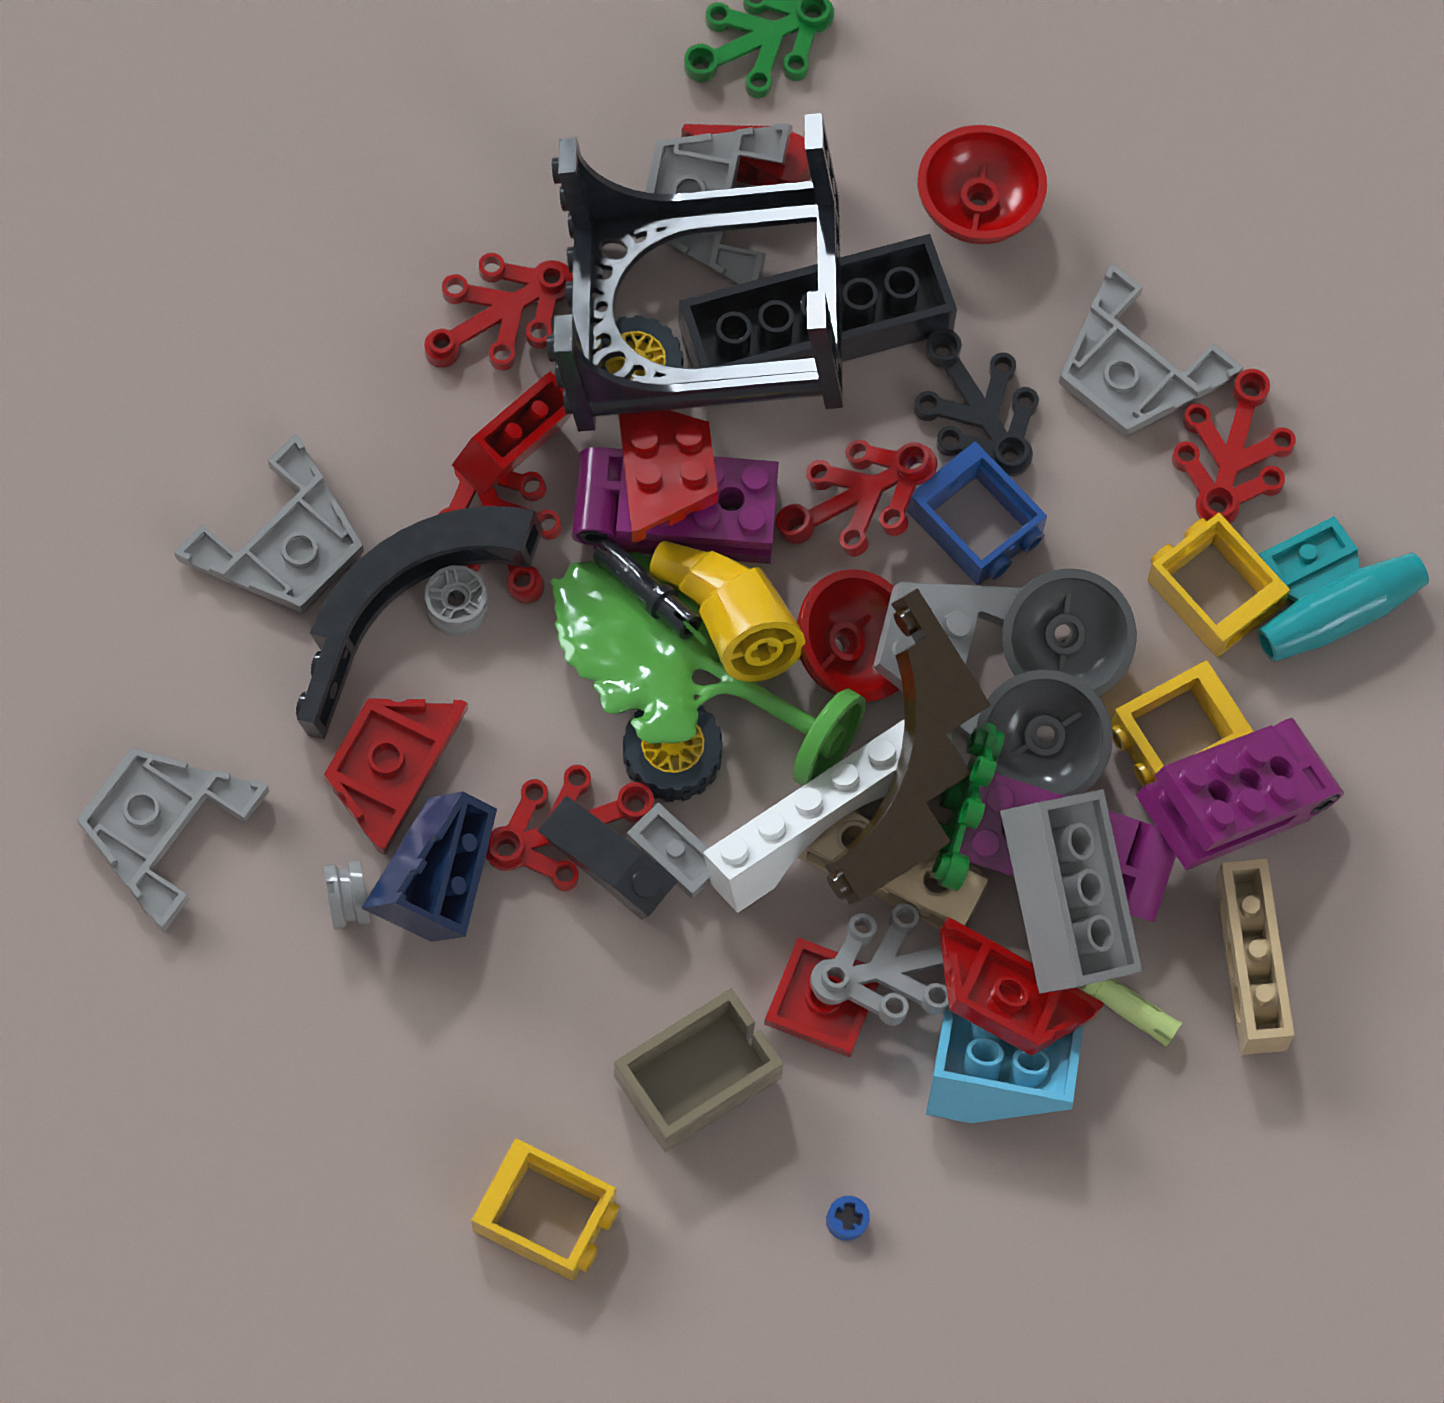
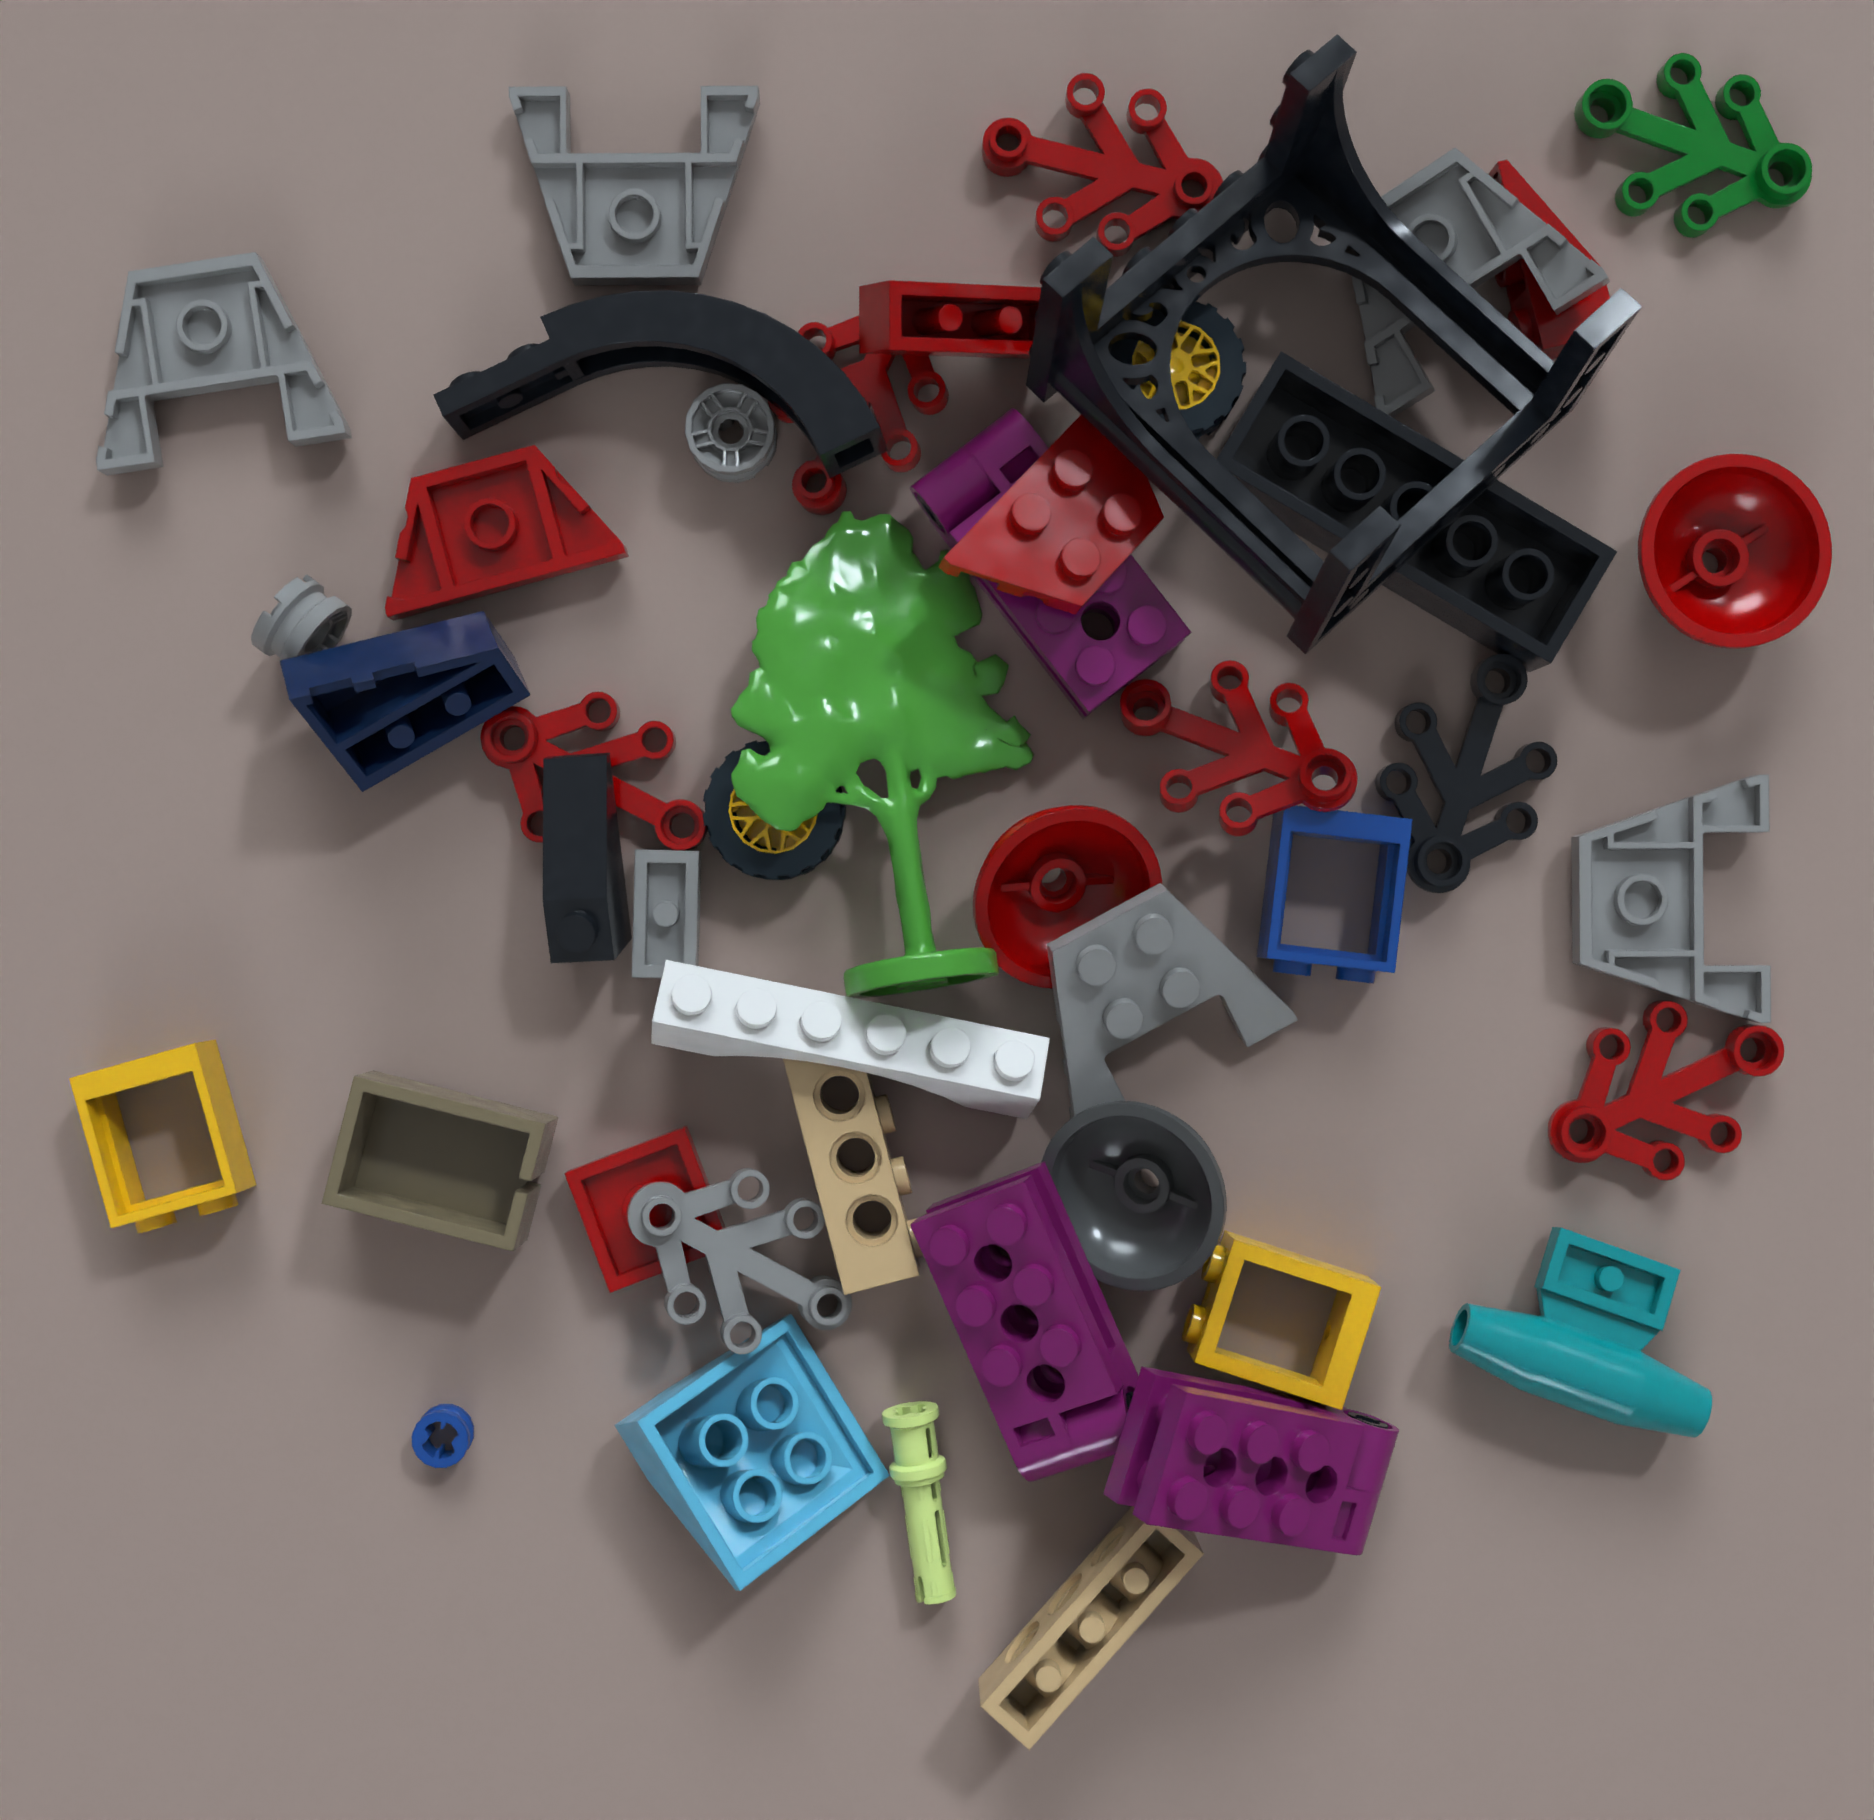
camera: 55 degrees right, 20 degrees up
(659, 599) = (915, 648): black pin -> none
(739, 608) = (978, 745): yellow piece -> none
(936, 700) = (1044, 1072): dark brown arch -> none
(966, 804) = (1052, 1152): green plant -> none
(1002, 993) = (811, 1406): red wing -> none
(1071, 891) = (968, 1391): light grey slope -> none
(1098, 620) = (1270, 1149): dark grey hat -> none
(1269, 587) = (1531, 1276): yellow window -> none

